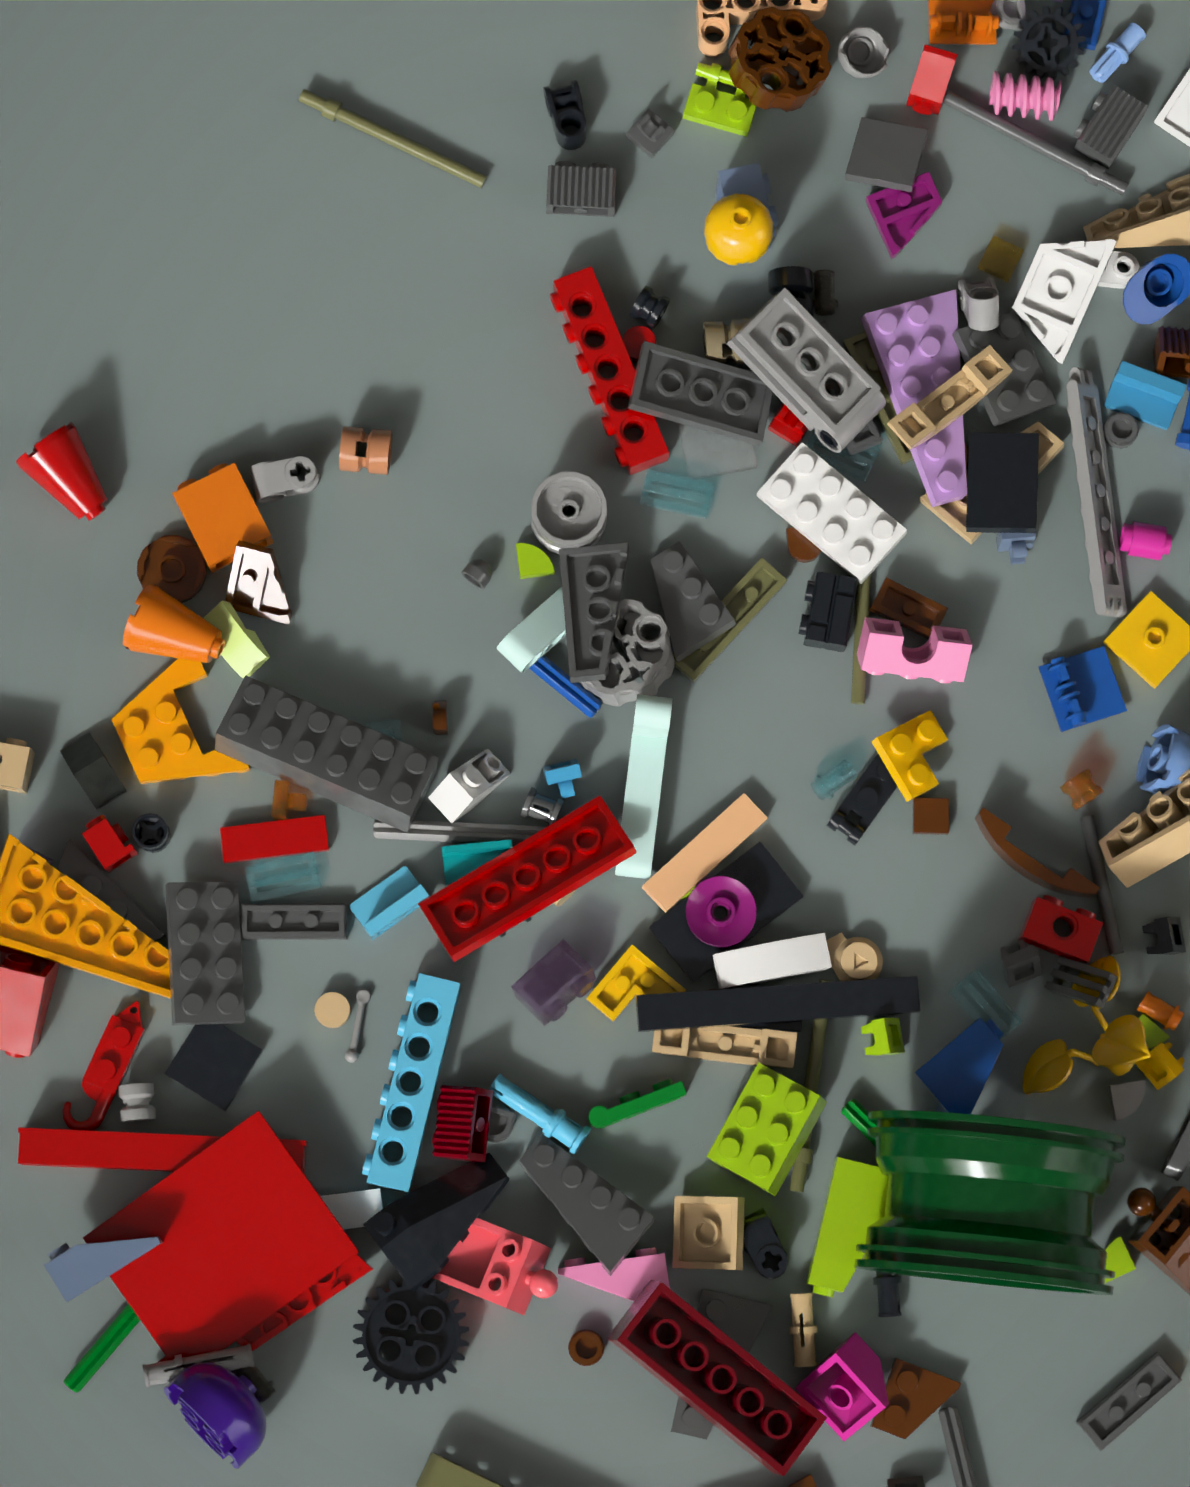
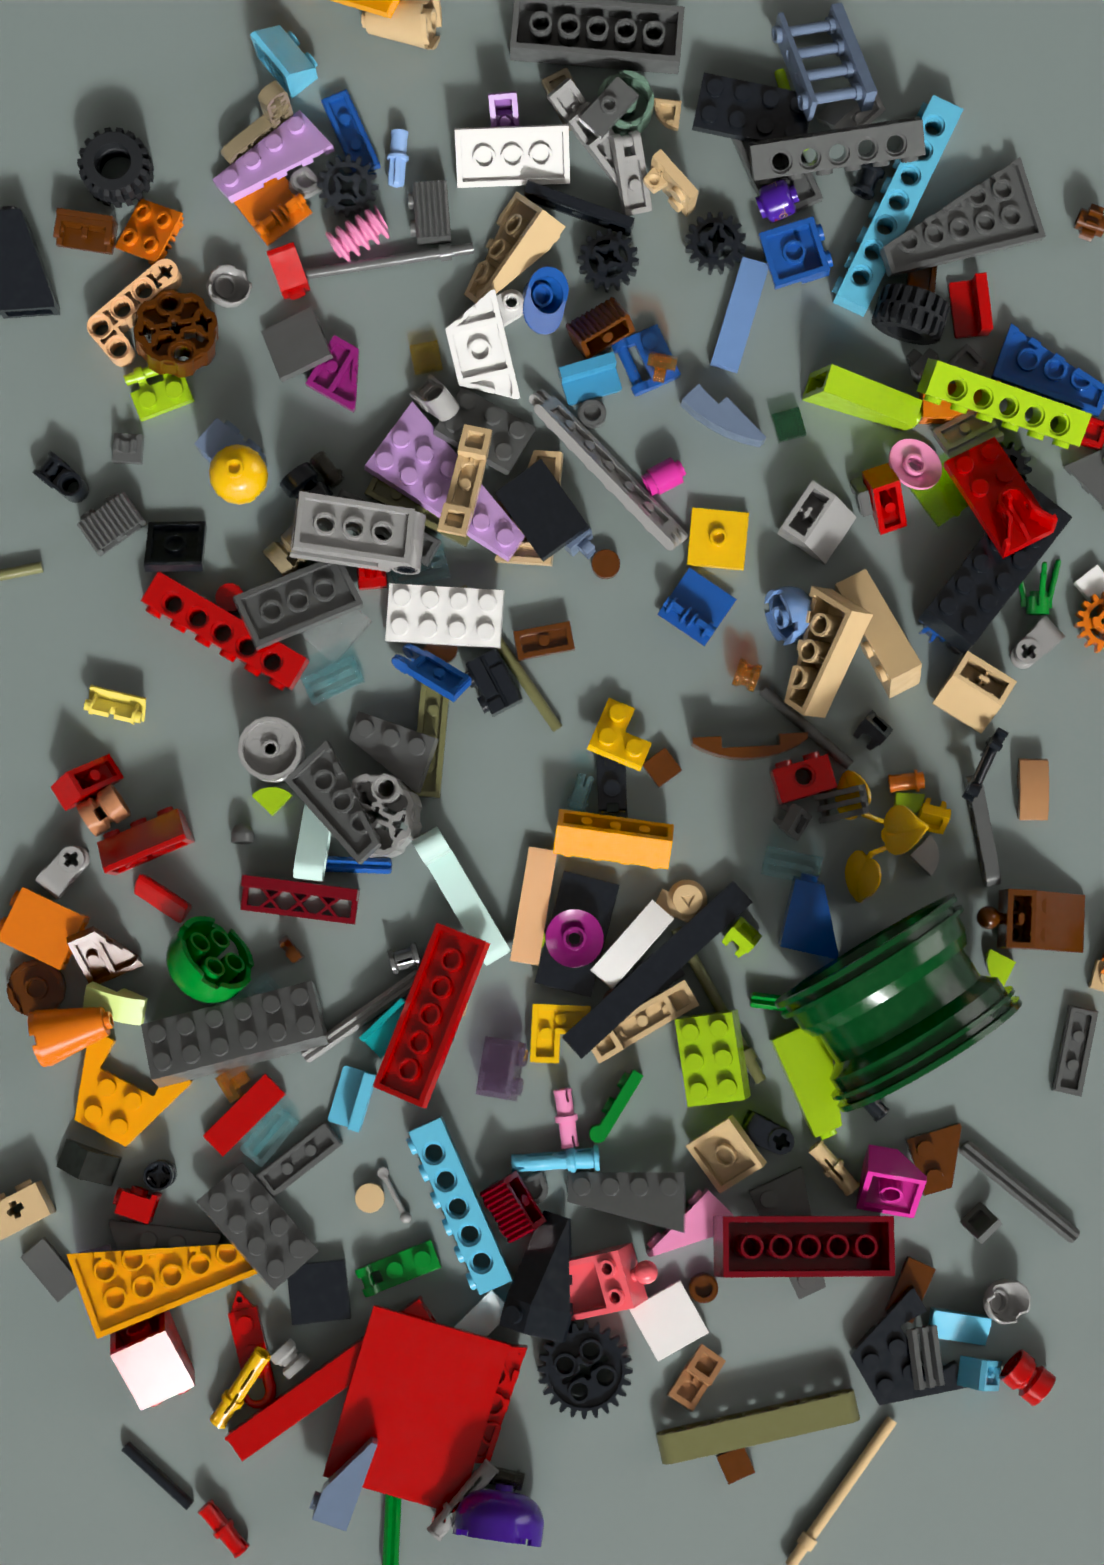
camera: 35 degrees left, 5 degrees up
(33, 1106) = (234, 1396): none -> yellow pin
(308, 1099) = (399, 1267): none -> green plate
(340, 662) = (195, 965): none -> green cylinder
(355, 575) = (162, 898): none -> red slope
(369, 409) = (86, 781): none -> red slope
(381, 509) = (144, 841): none -> red slope
(455, 360) = (122, 705): none -> light yellow hinge
(468, 785) = (345, 981): white slope -> none
(495, 666) = (302, 888): none -> dark red fence
(512, 1429) = (696, 1377): none -> medium nougat slope
(528, 1352) = (669, 1320): none -> white tile
(562, 774) = (401, 926): dark azure tile -> none
(579, 1079) = (566, 1118): none -> bright pink pin
(625, 256) = (175, 546): none -> black tile
(650, 306) = (218, 568): black wheel -> none
(779, 556) = (432, 672): none -> blue hinge
(831, 846) = (613, 839): none -> light orange brick
(940, 658) = (589, 659): bright pink arch -> none
(1024, 582) = (605, 564): none -> reddish brown tile

